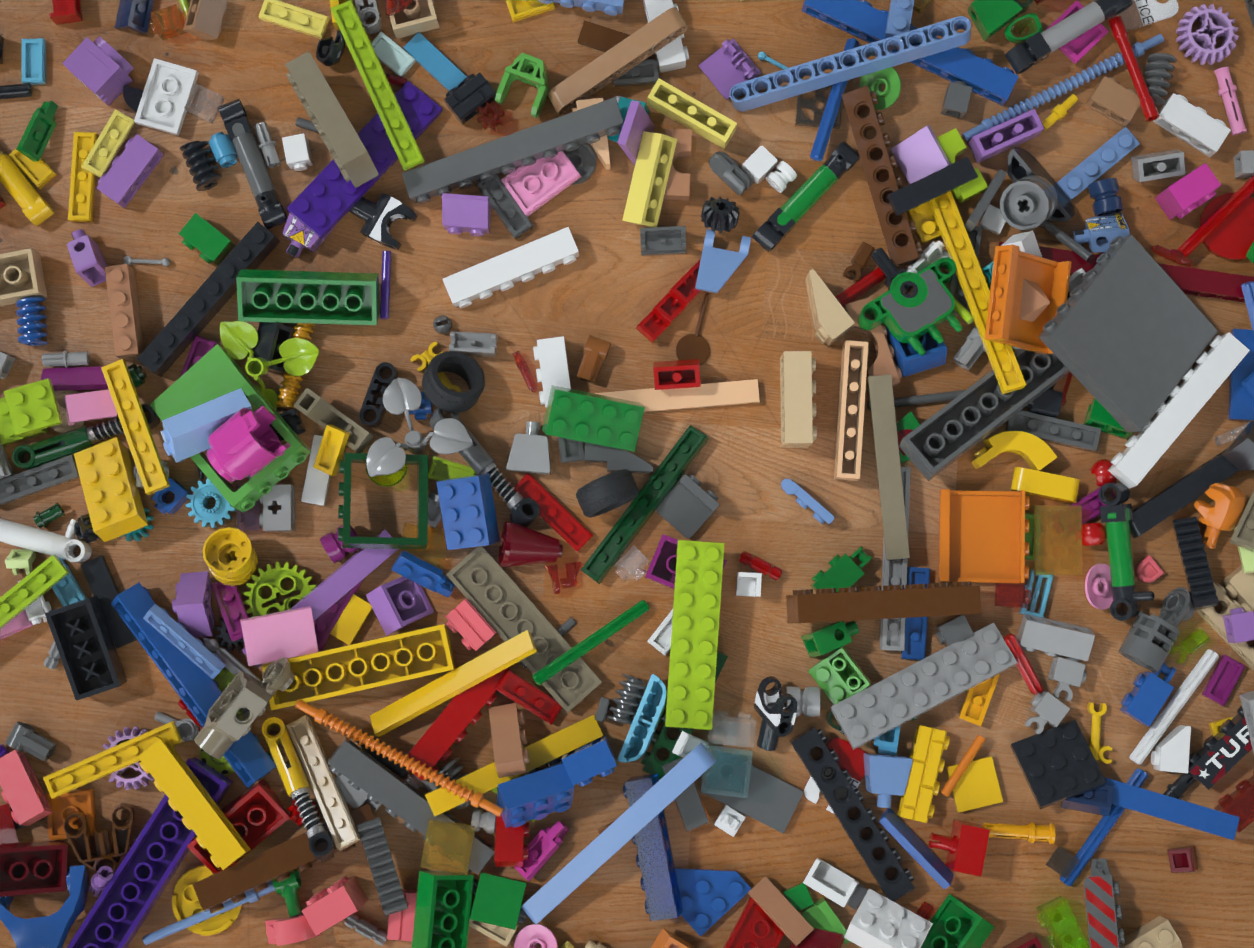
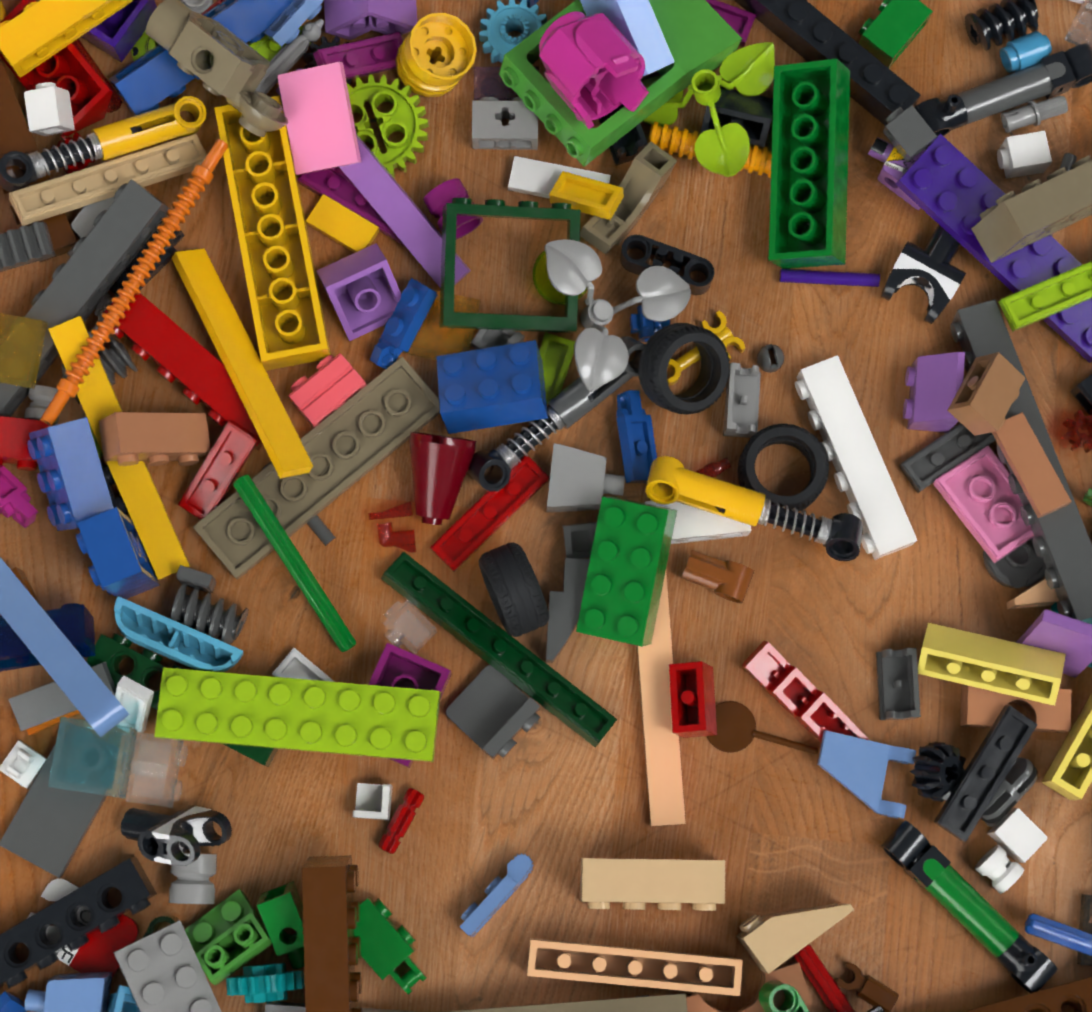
camera: 85 degrees right, 5 degrees down
(273, 827) = (49, 109): none -> white brick
(286, 229) = (908, 132): none -> dark grey brick
(471, 179) = (986, 394): none -> medium nougat brick
(501, 414) = (635, 437): none -> blue hinge
(510, 294) = (795, 437): none -> black tyre
(518, 151) = (1031, 466): none -> nougat tile
(534, 387) = (673, 483): none -> piece
(721, 184) = (985, 773): none -> black tile
(868, 649) = (265, 983): none -> teal gear

